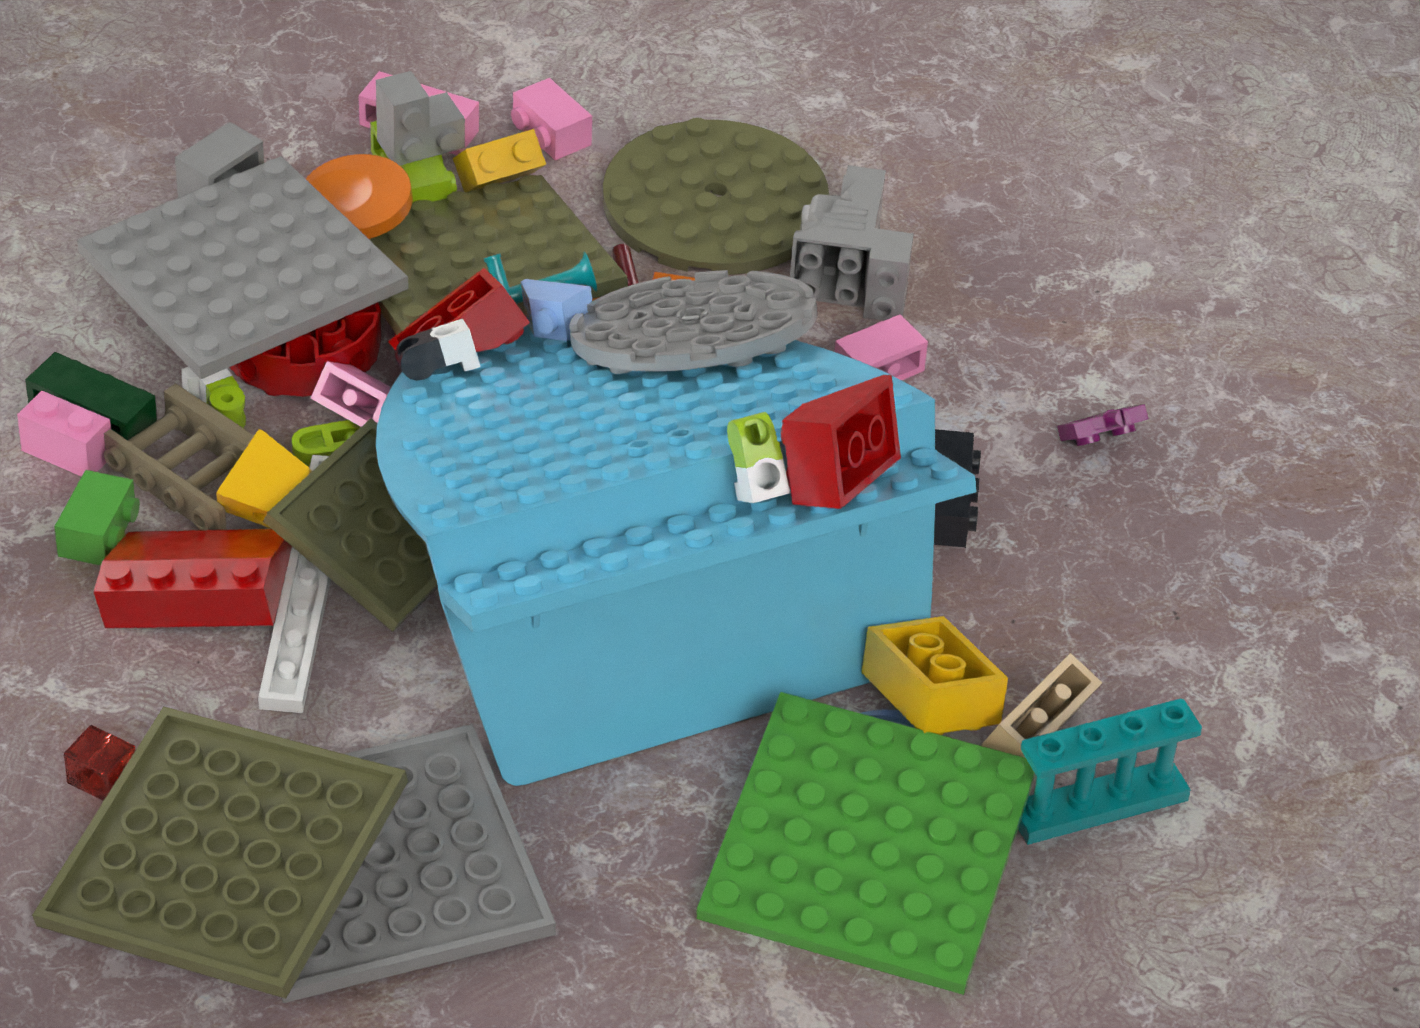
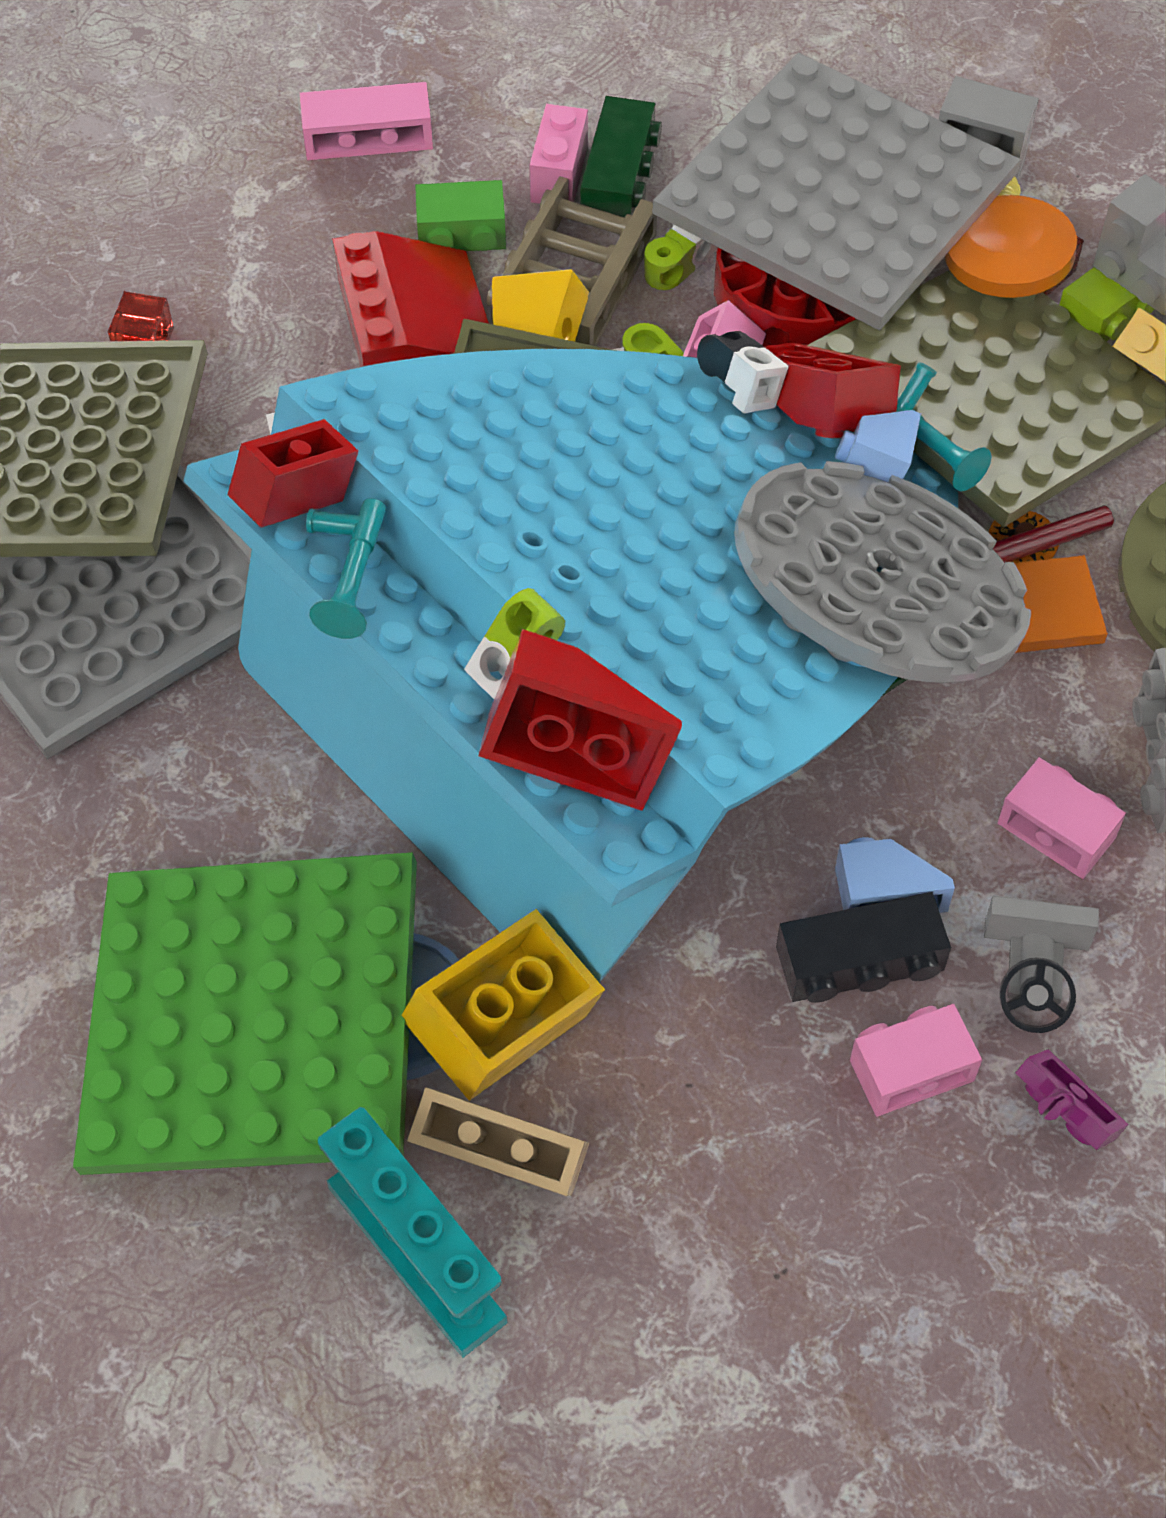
camera: 75 degrees right, 15 degrees up
(534, 539) = (292, 472): none -> red brick
(588, 523) = (339, 614): none -> teal piece
(995, 416) = (1036, 953): none -> light grey piece
(1044, 488) = (914, 1058): none -> bright pink brick

